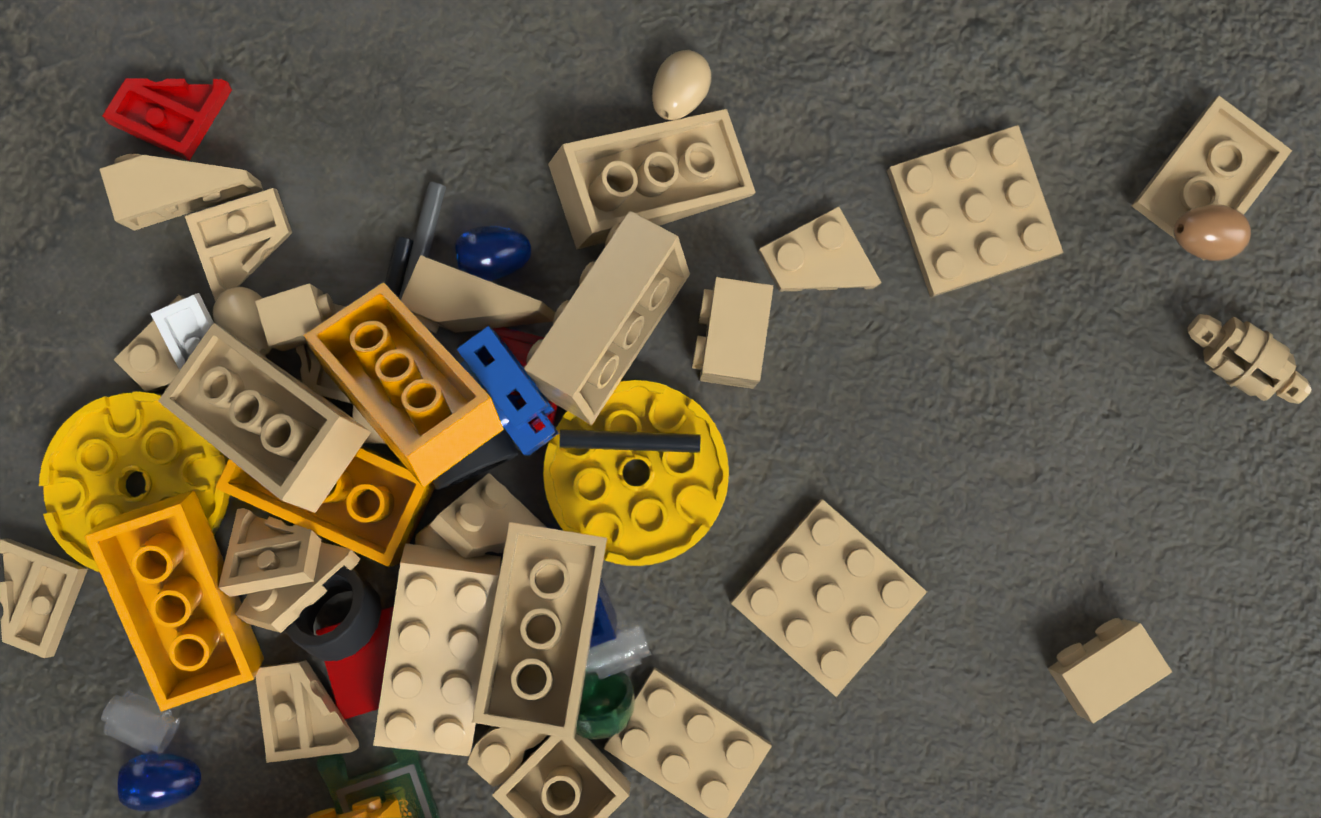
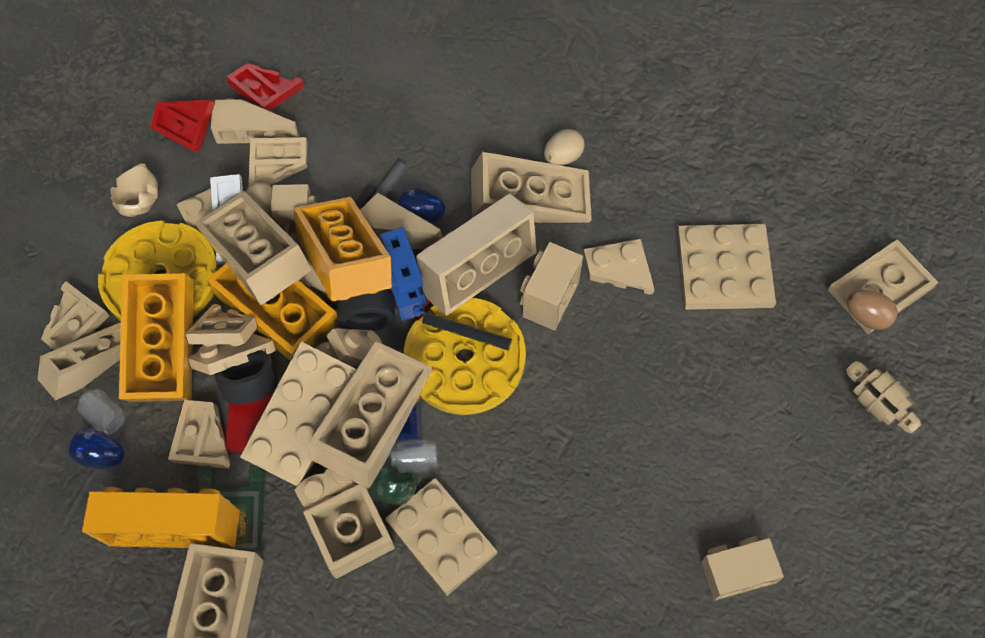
camera: 20 degrees right, 20 degrees down
(40, 362) = (135, 191): none -> tan hair
(65, 216) = (183, 121): none -> red wing
(75, 660) = (79, 362): none -> tan slope
(828, 597) = (564, 469): tan plate -> none

